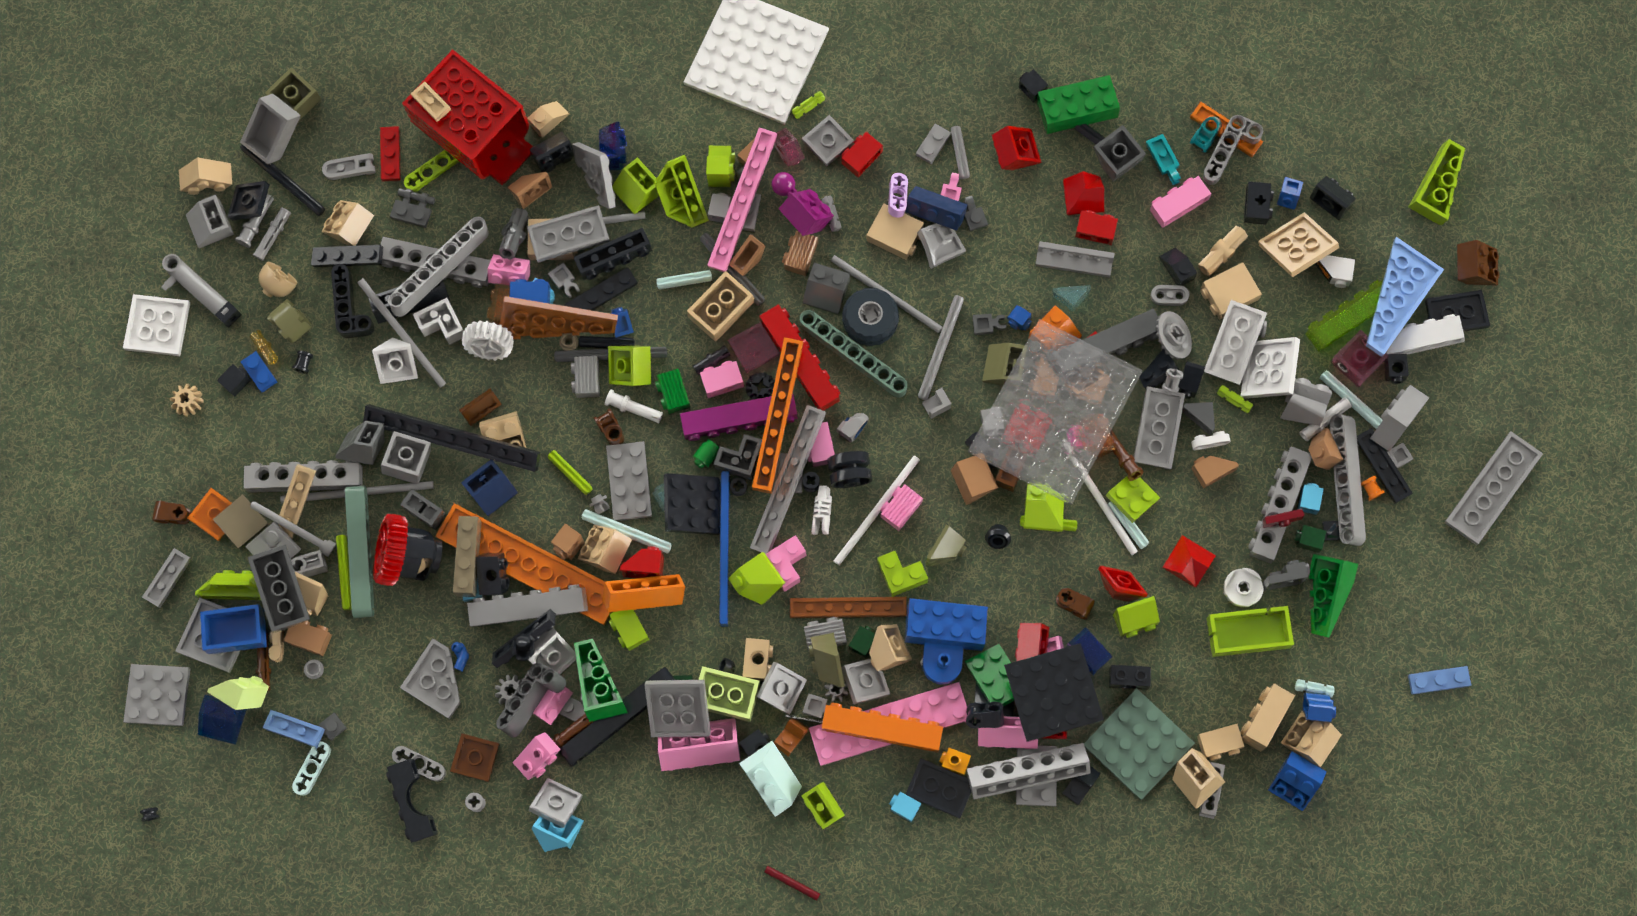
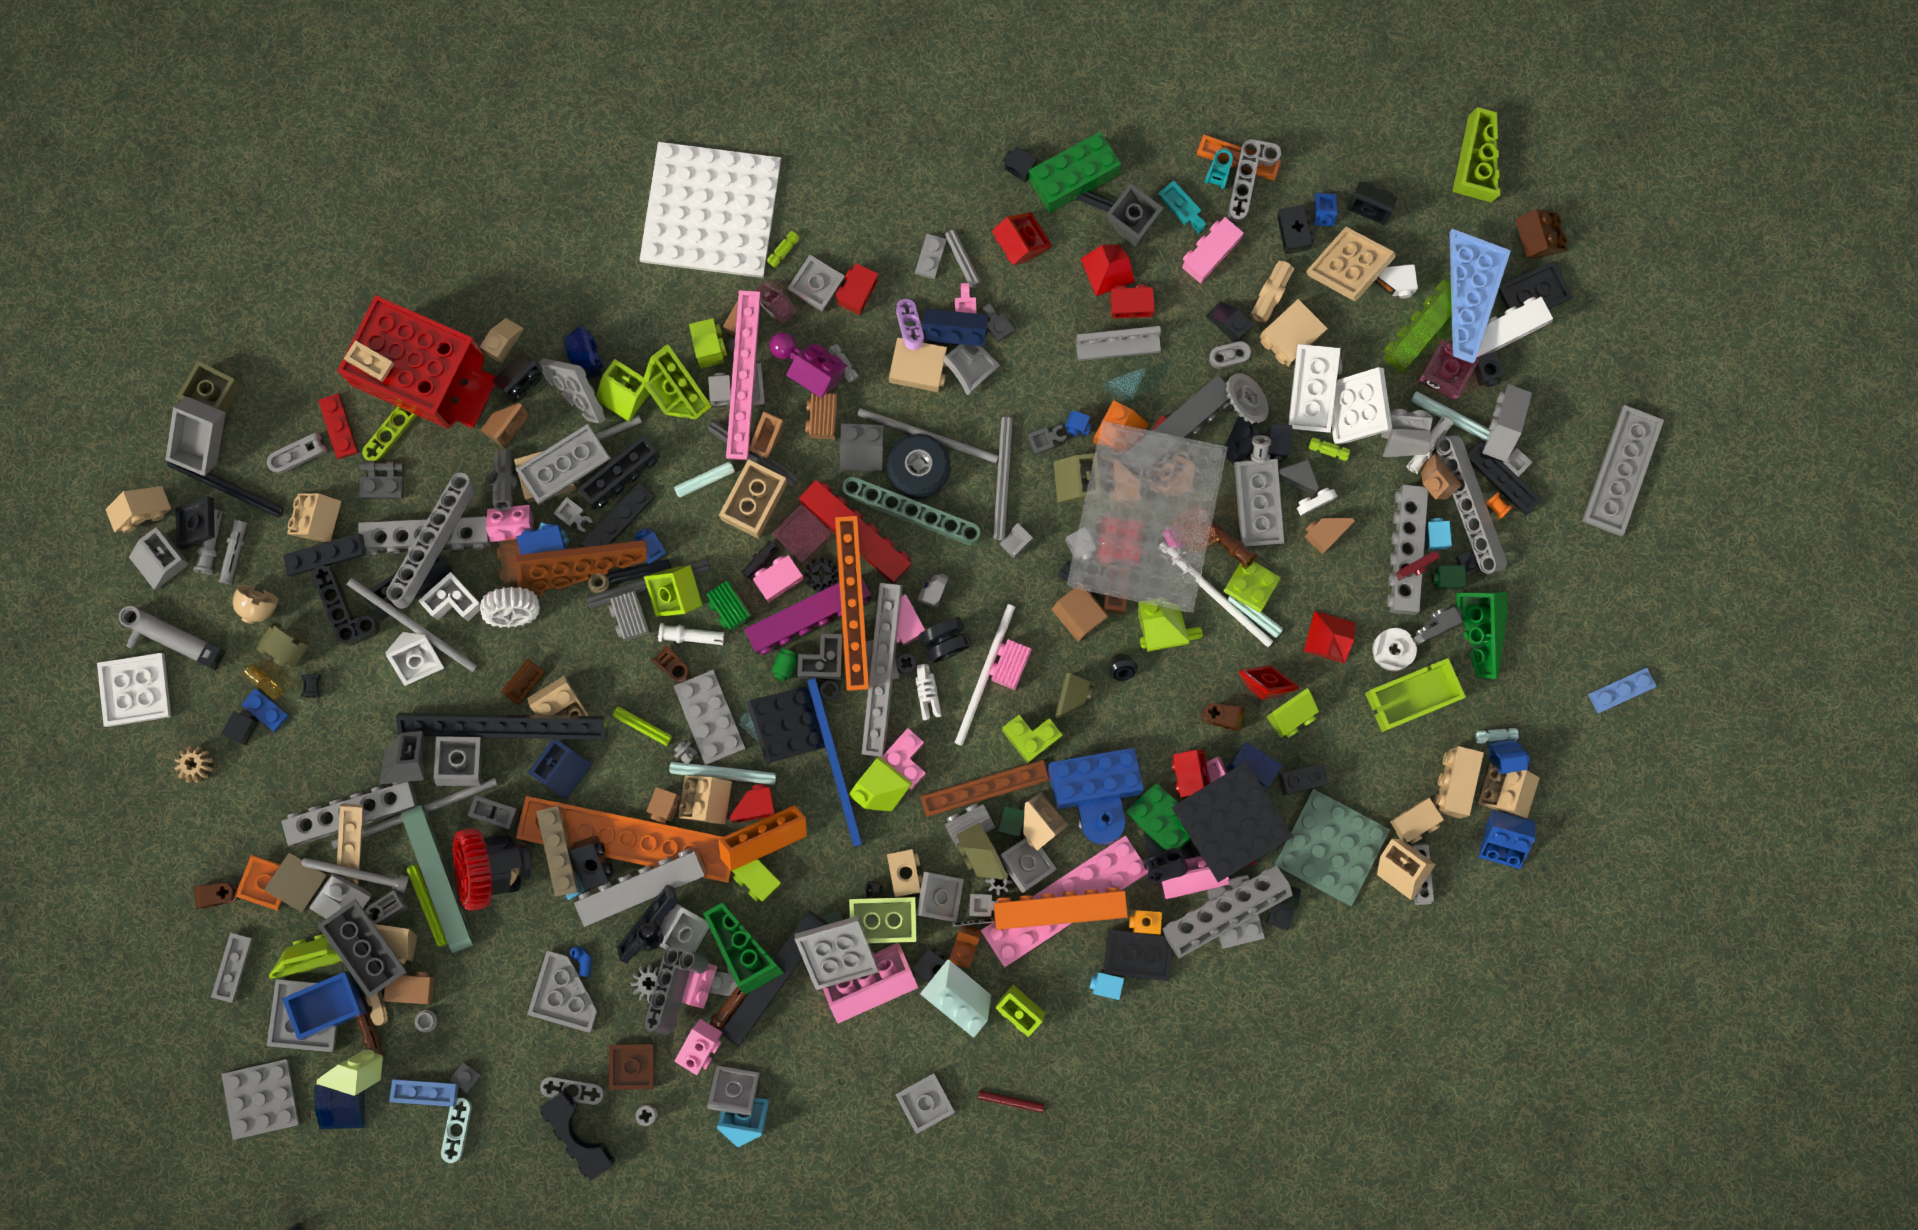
camera: 25 degrees left, 5 degrees up
(717, 862) = (925, 1103): none -> light grey plate

